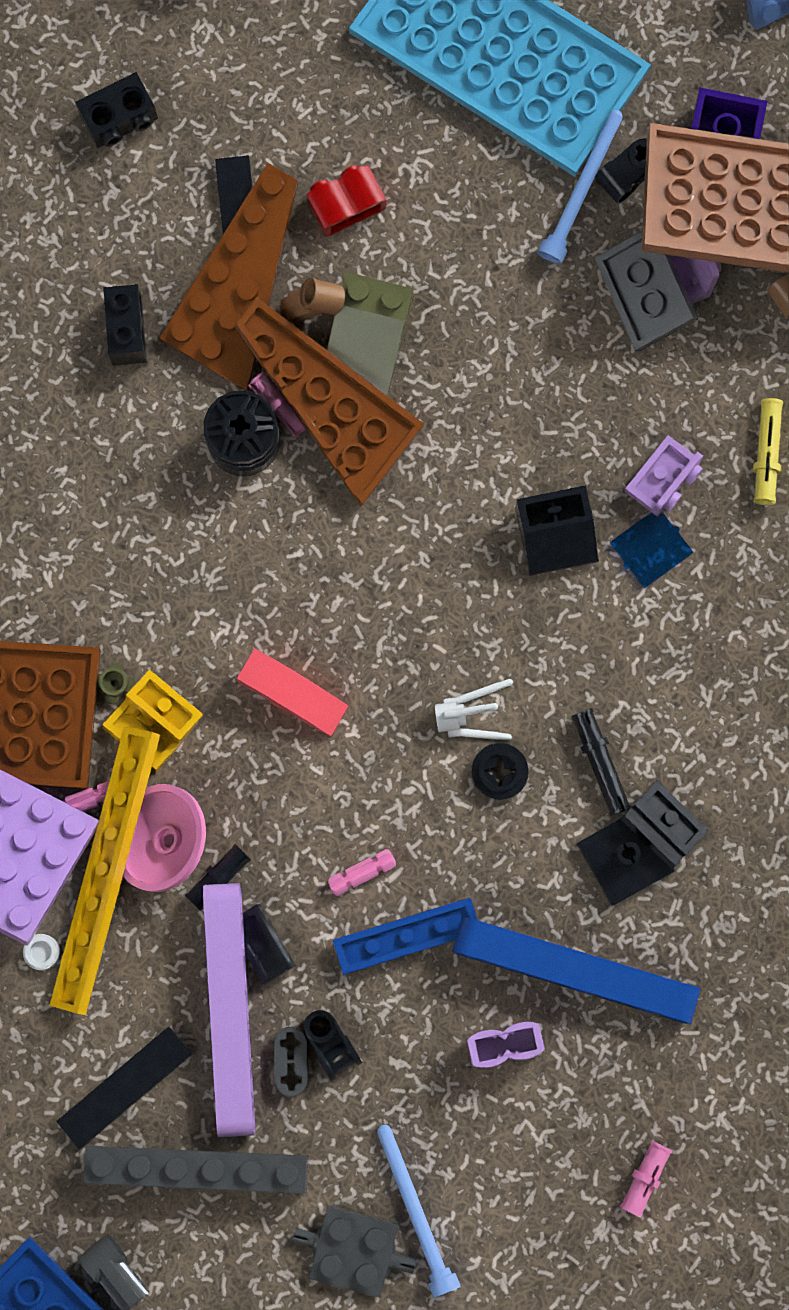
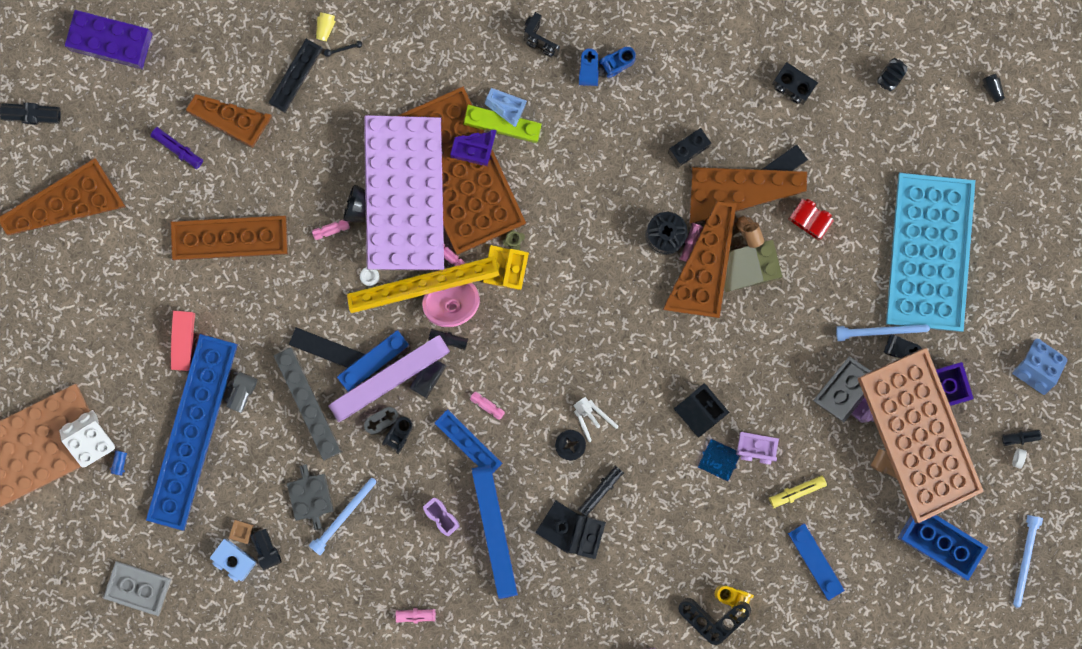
camera: 55 degrees right, 5 degrees up
(184, 1022) = (372, 361): none -> blue plate
(292, 692) = (554, 326): coral slope -> none

